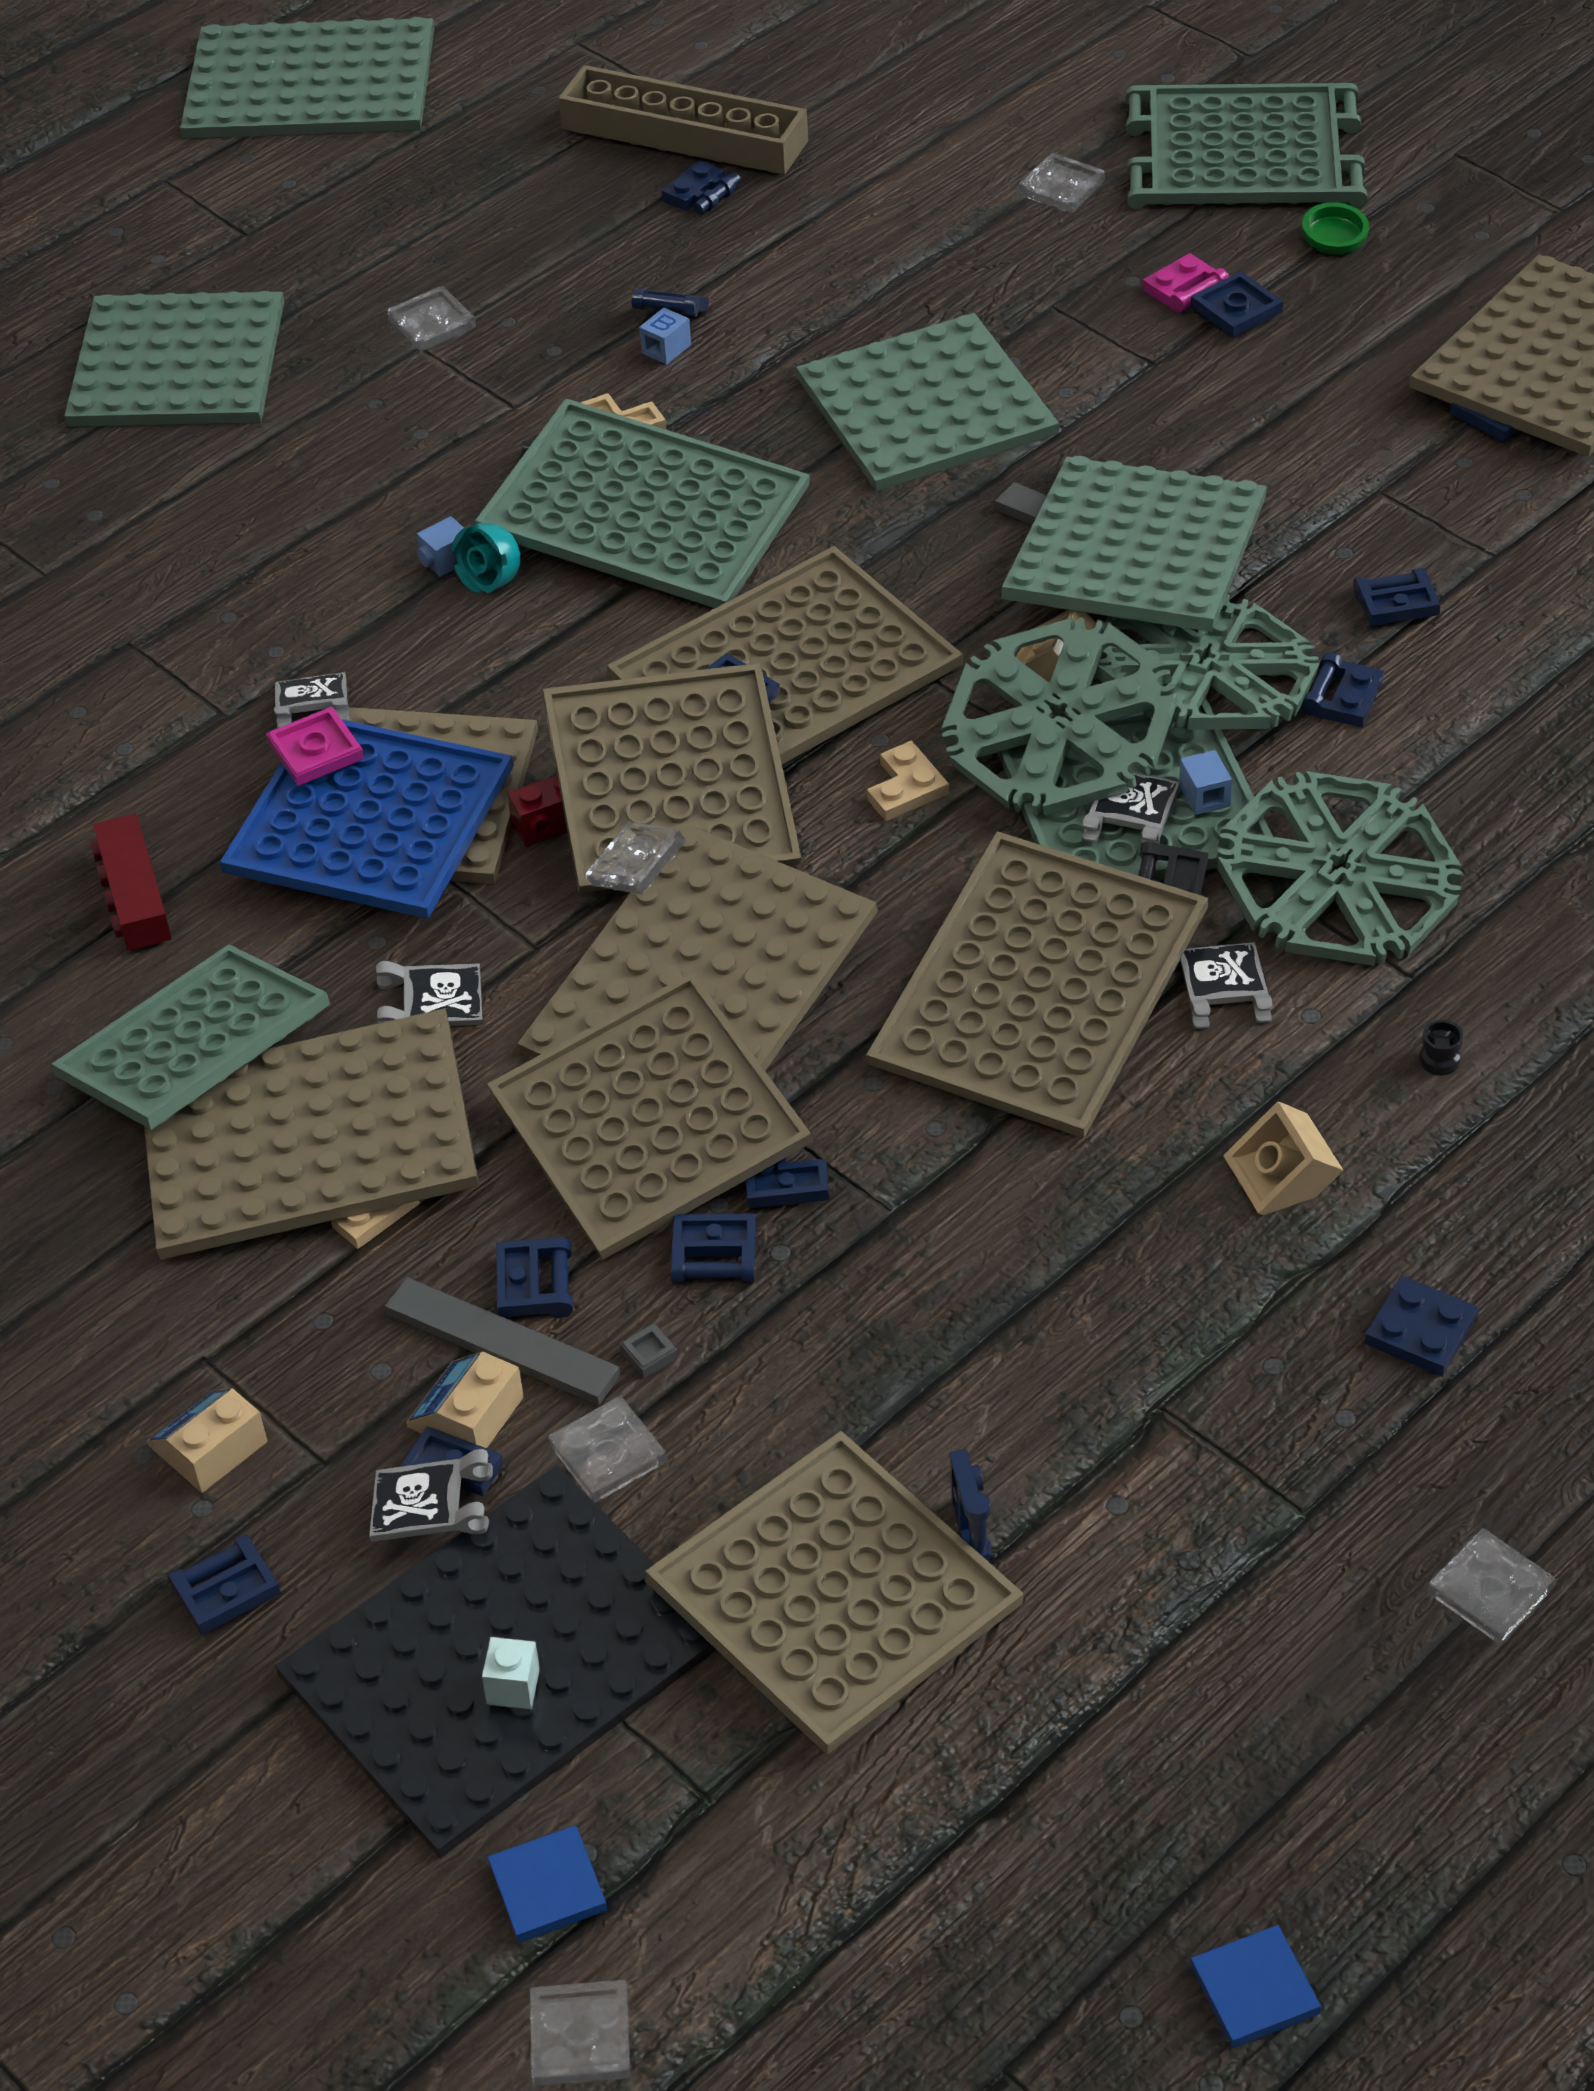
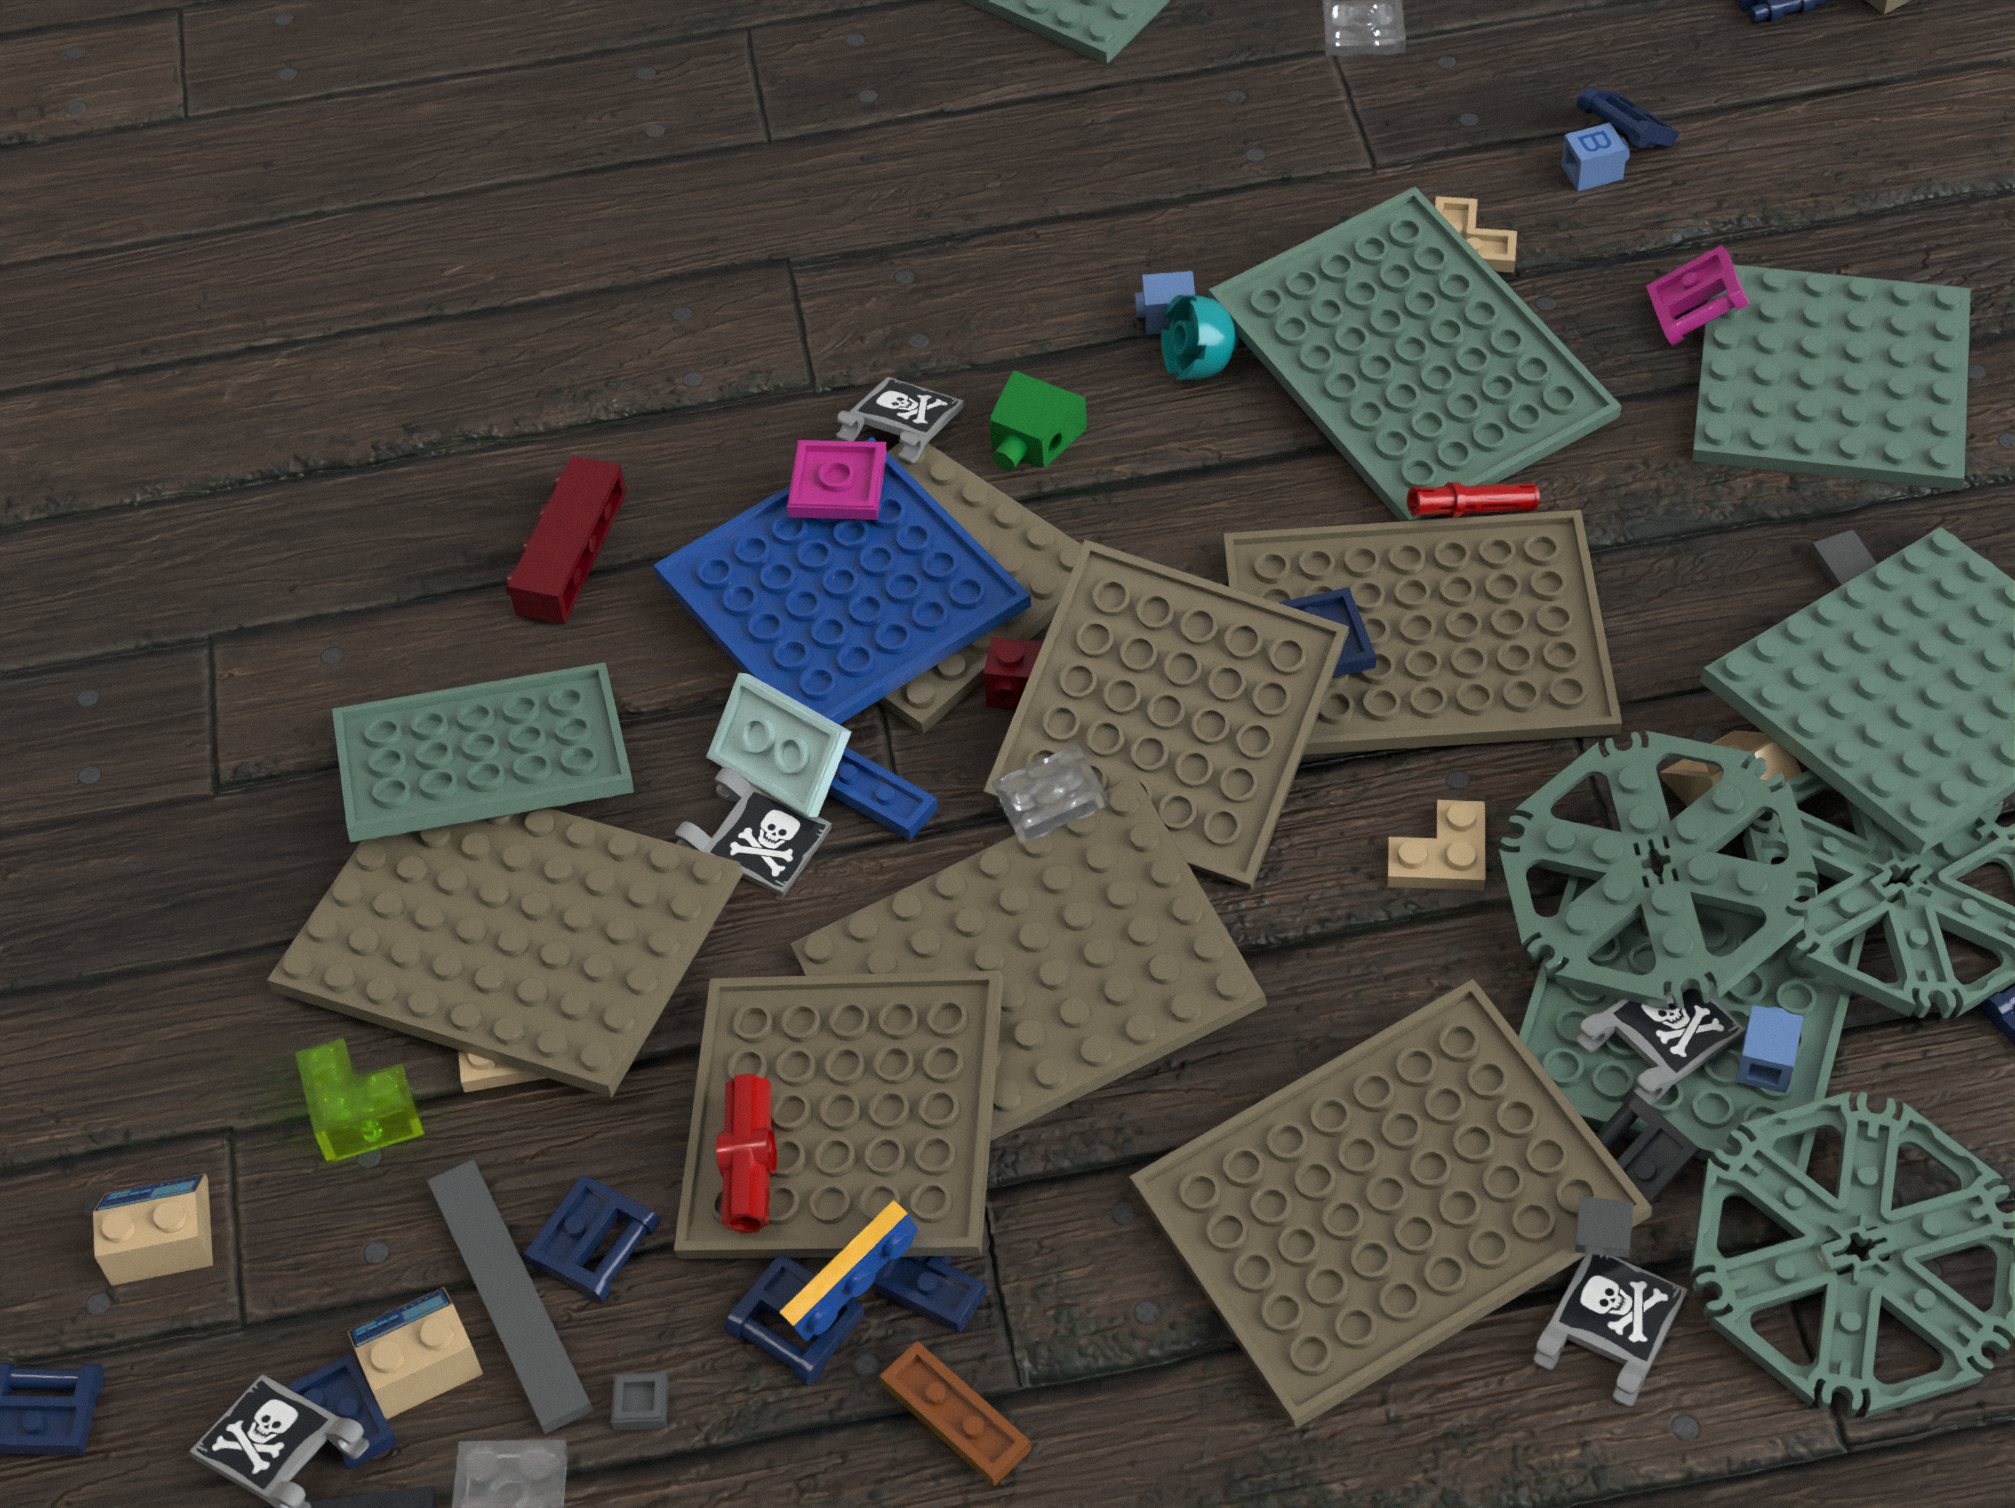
camera: 35 degrees right, 5 degrees up
(290, 1293) = (355, 1111): none -> clear neon green brick
(409, 927) = (778, 744): none -> light aqua tile
(412, 659) = (1034, 422): none -> green torso
(488, 928) = (881, 795): none -> blue plate
(609, 1162) = (746, 1154): none -> red piece
(742, 1189) = (850, 1272): none -> plate
(749, 573) = (1457, 499): none -> red pin
(799, 382) = (1693, 285): none -> dark pink plate
(866, 1241) = (955, 1413): none -> dark orange plate
(1190, 920) = (1604, 1227): none -> dark grey tile

